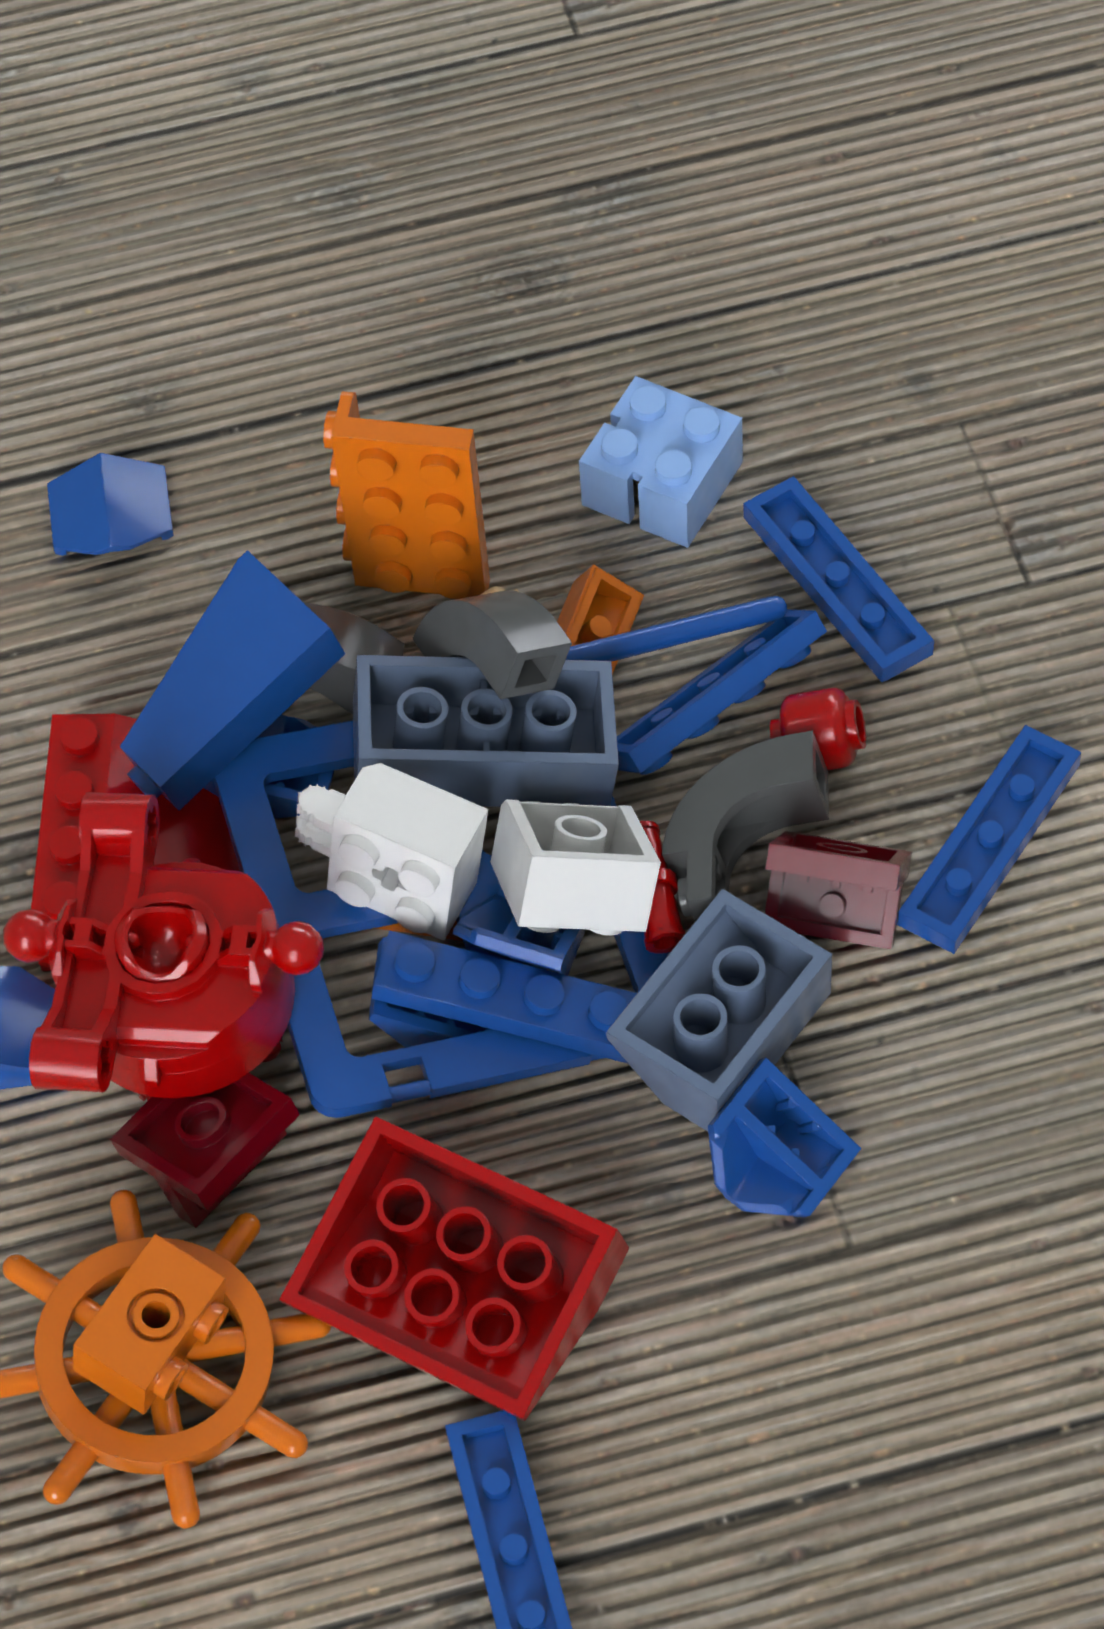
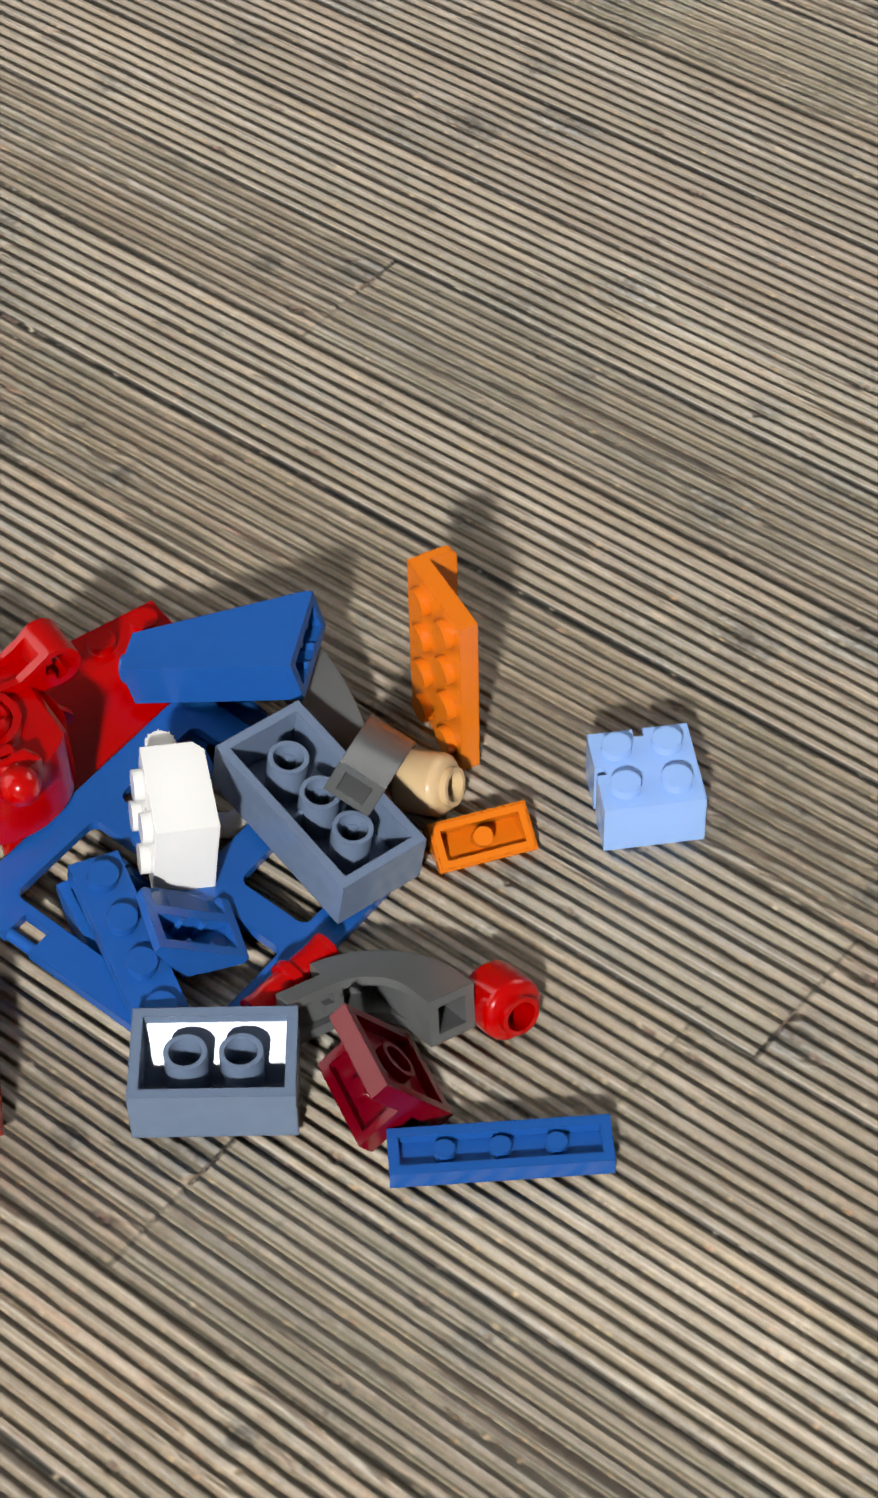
camera: 50 degrees right, 10 degrees down
(109, 506) = (358, 547): blue slope -> none
(575, 866) = (244, 912): white hinge -> none
(681, 631) = (488, 862): blue piece -> none
(729, 680) = (461, 924): blue plate -> none
(776, 1146) = (142, 1168): blue slope -> none
(838, 579) = (642, 941): blue plate -> none

